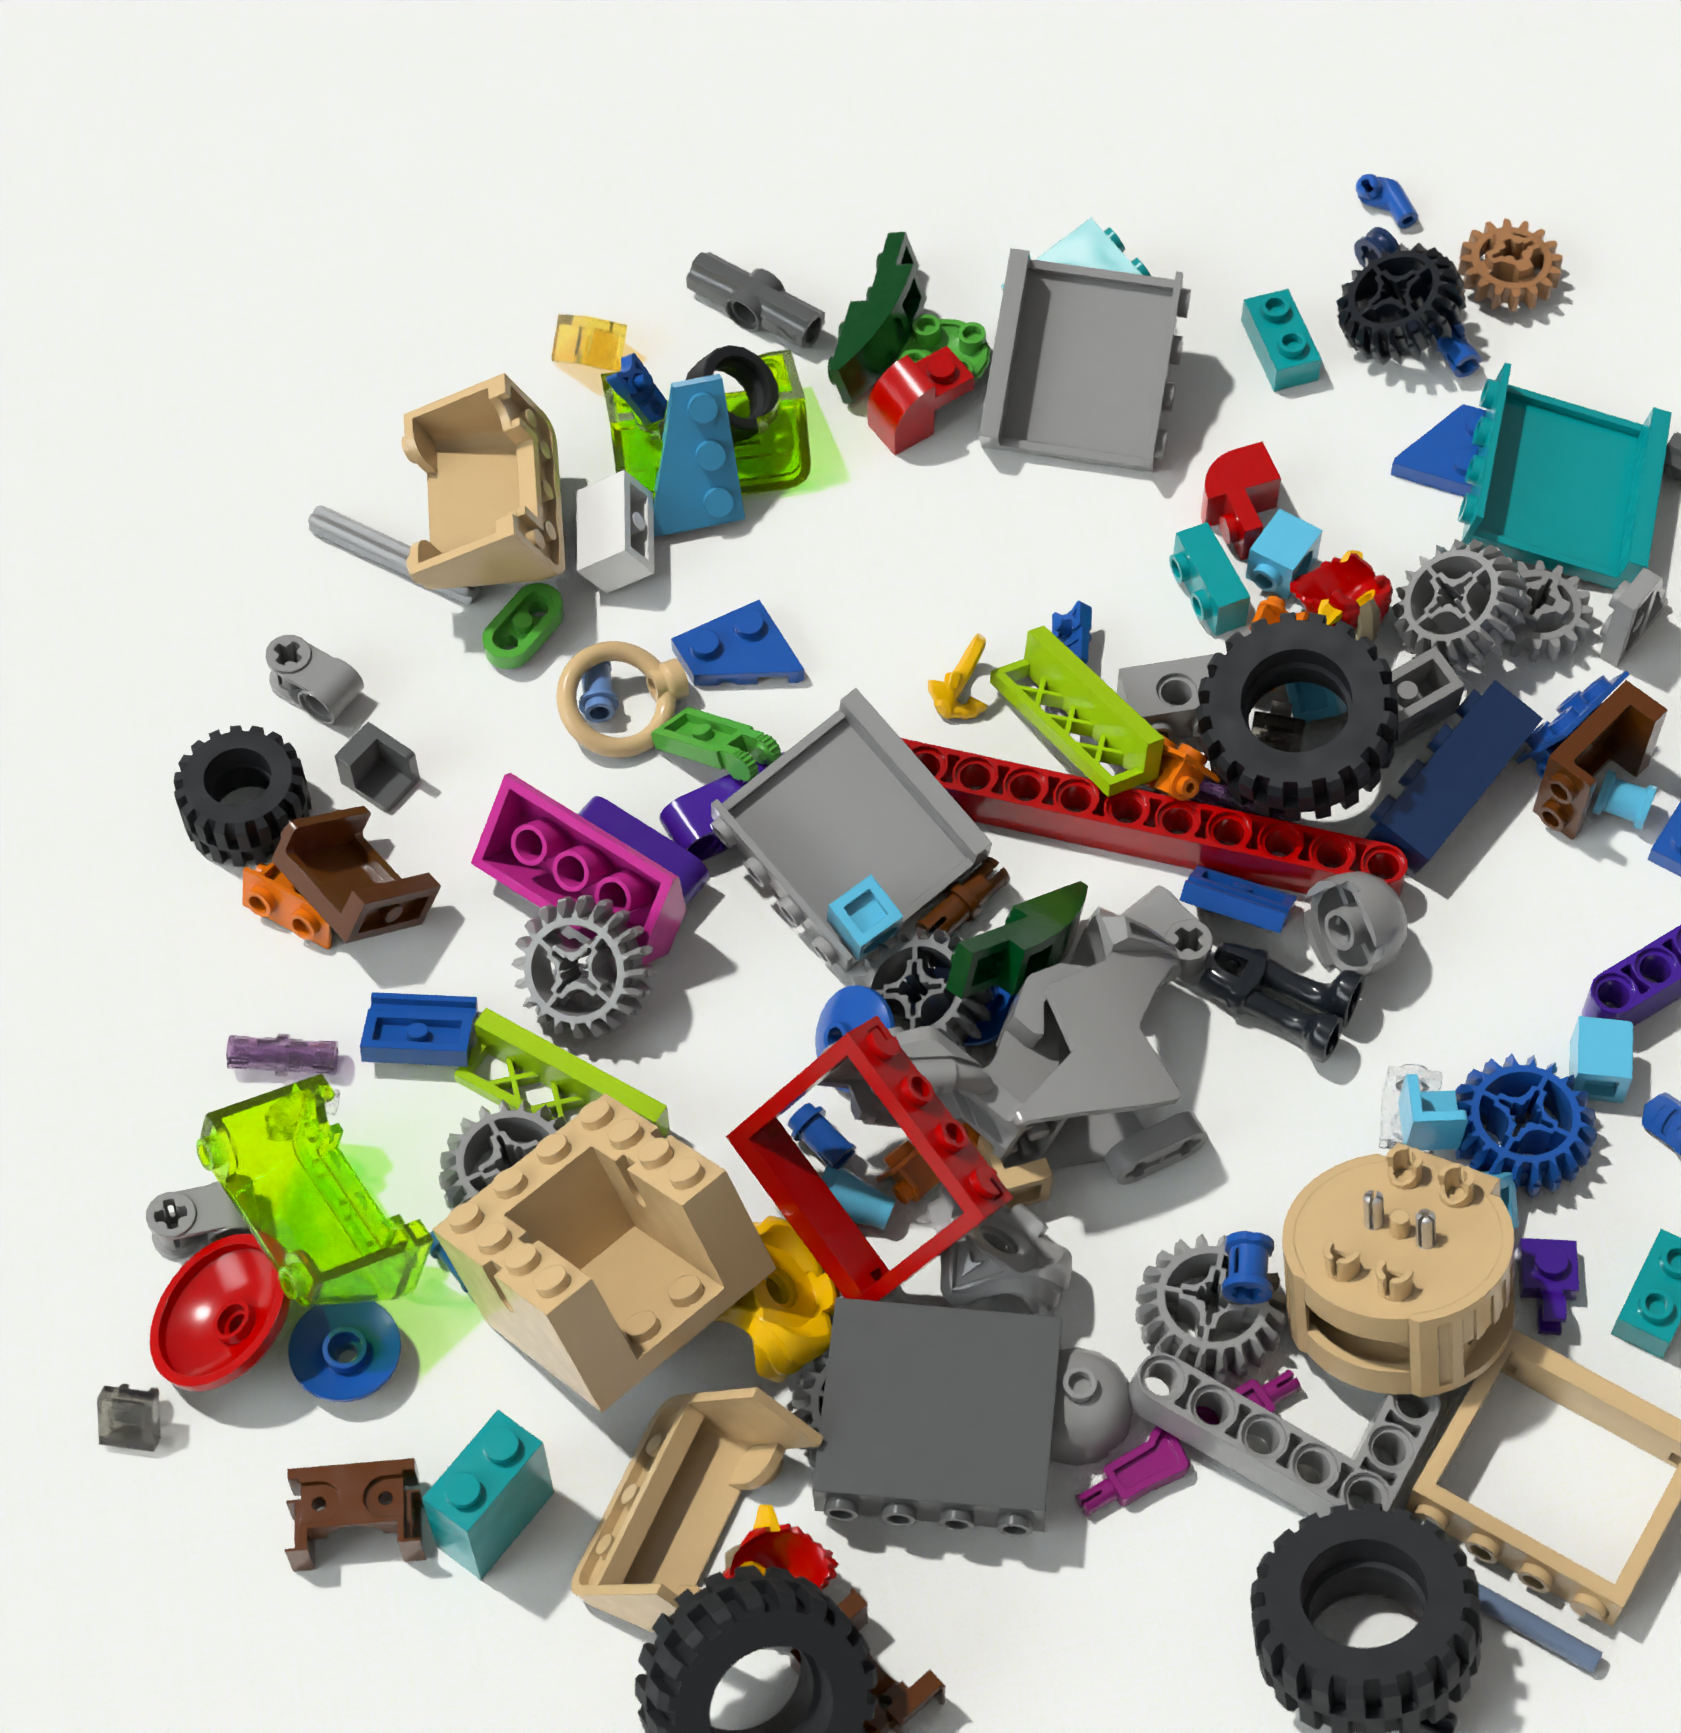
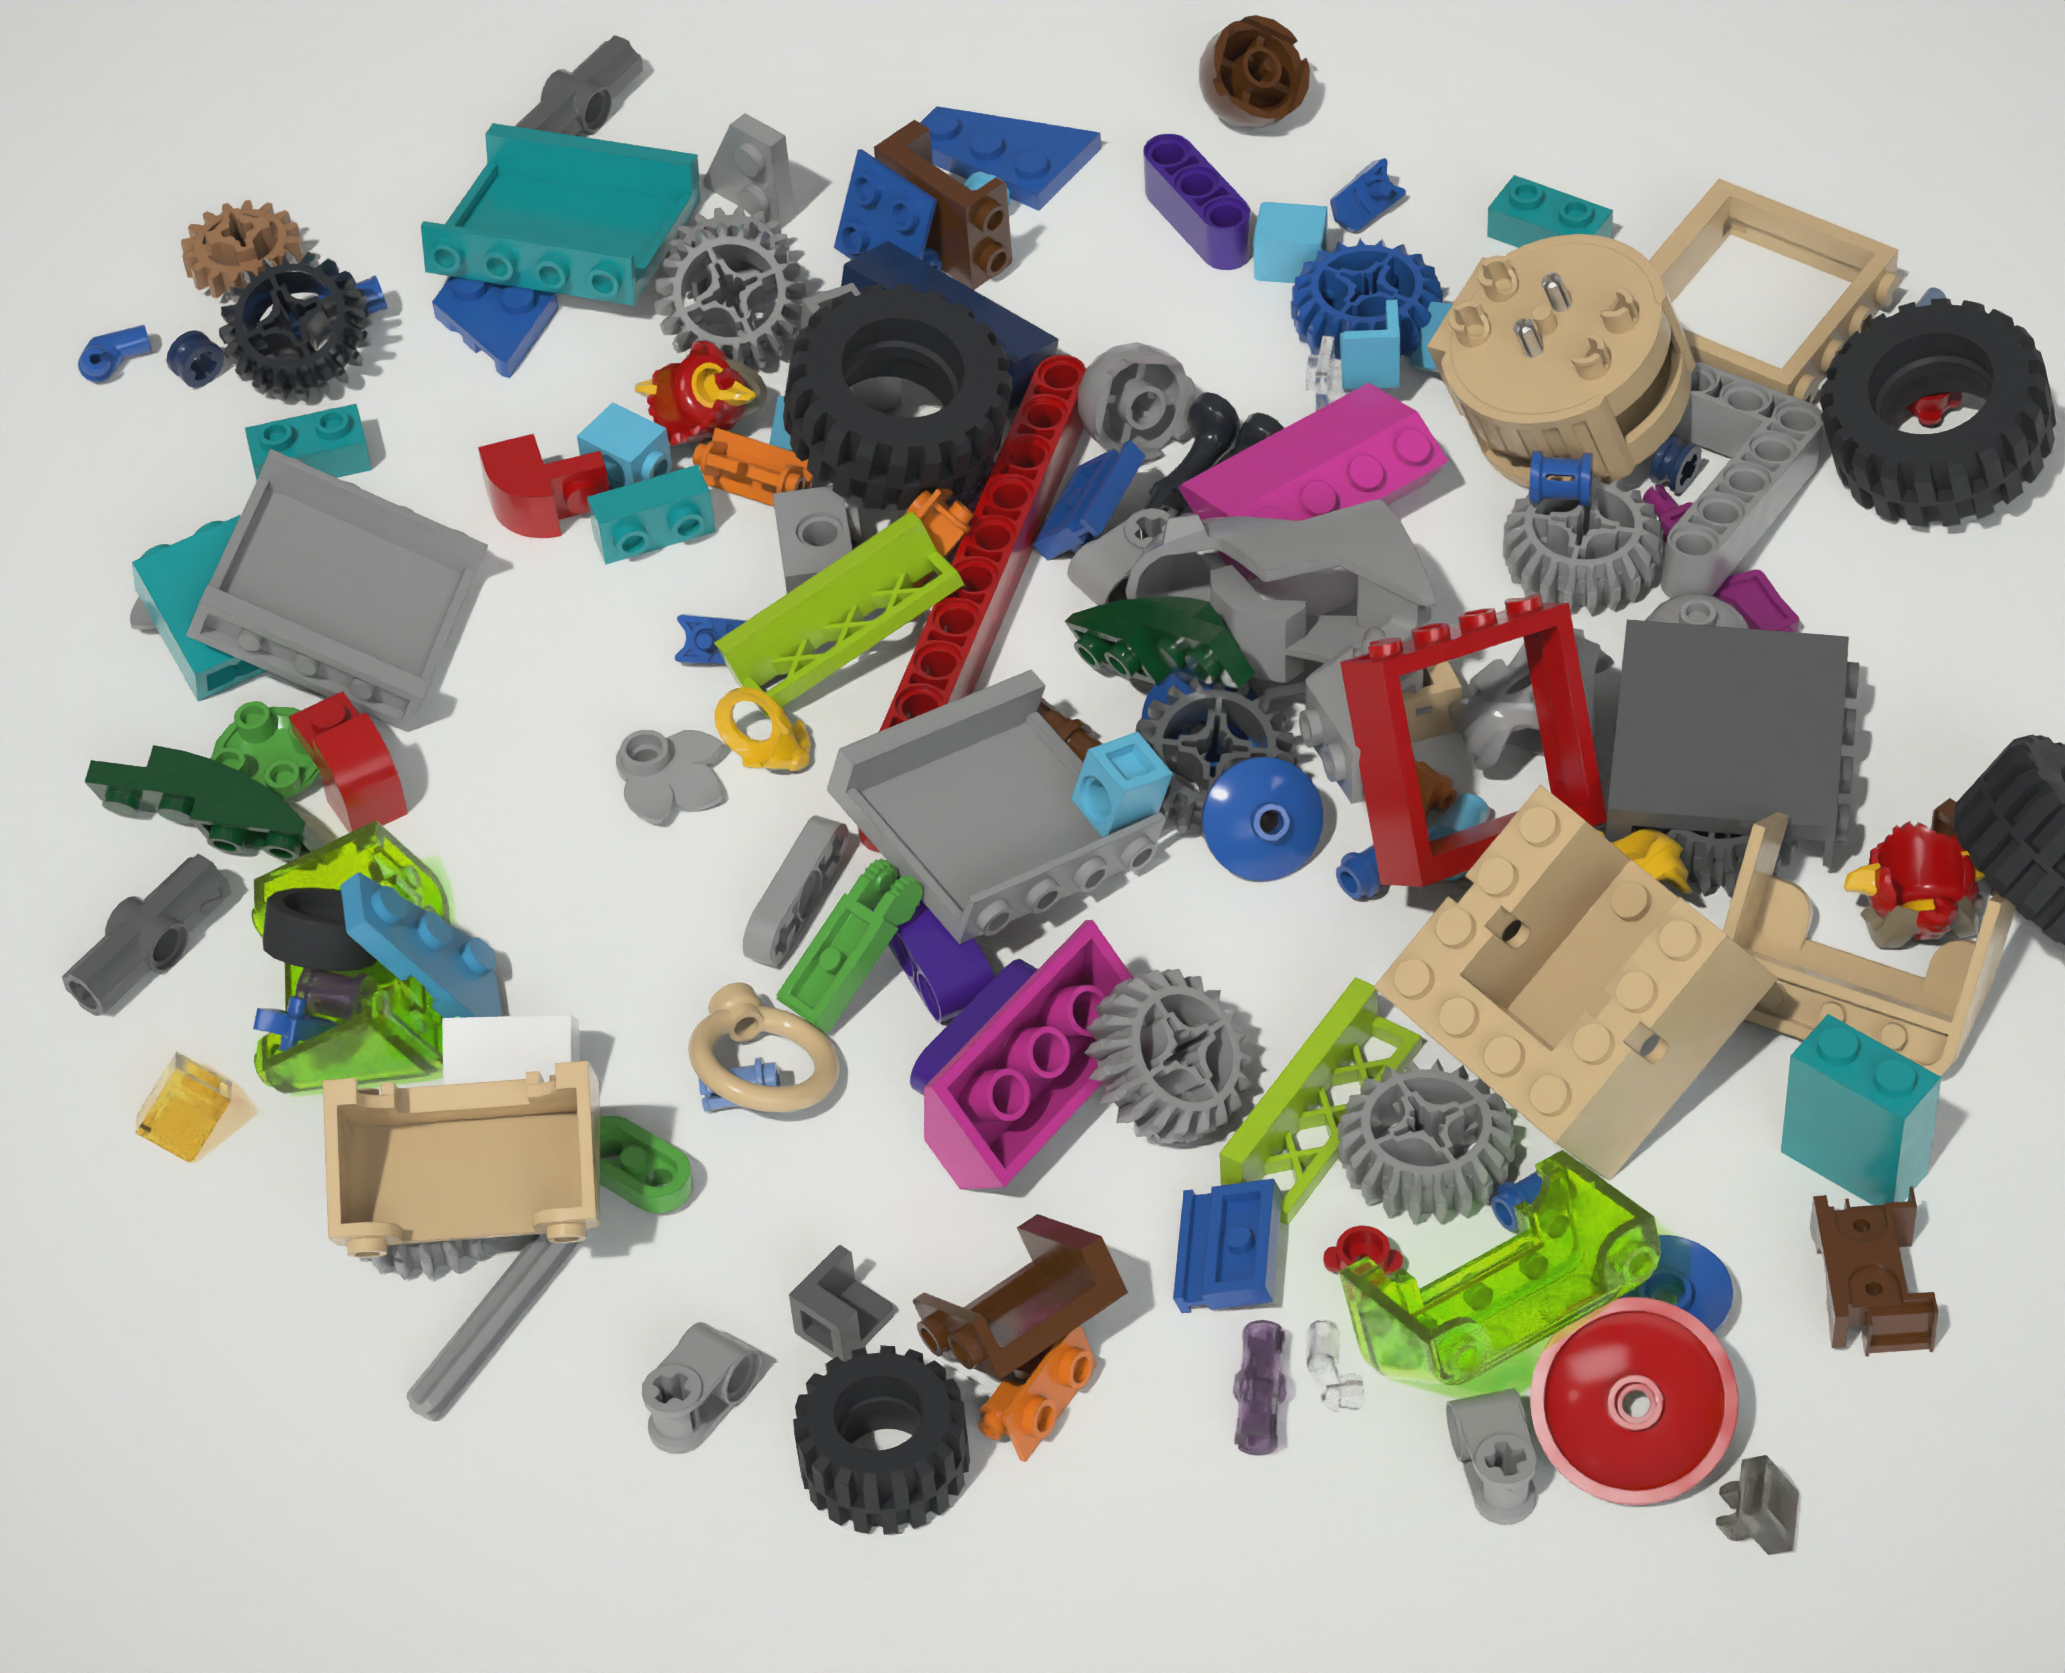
camera: 85 degrees left, 10 degrees down
(404, 1115) = (1361, 1243): none -> red plate
(737, 649) = (688, 952): blue wing -> none
(776, 704) = (795, 890): none -> light grey beam
(927, 625) = (668, 772): none -> light grey plate
(1264, 1071) = (1325, 462): none -> dark pink slope
(1324, 1395) = (1675, 464): none -> dark blue bush

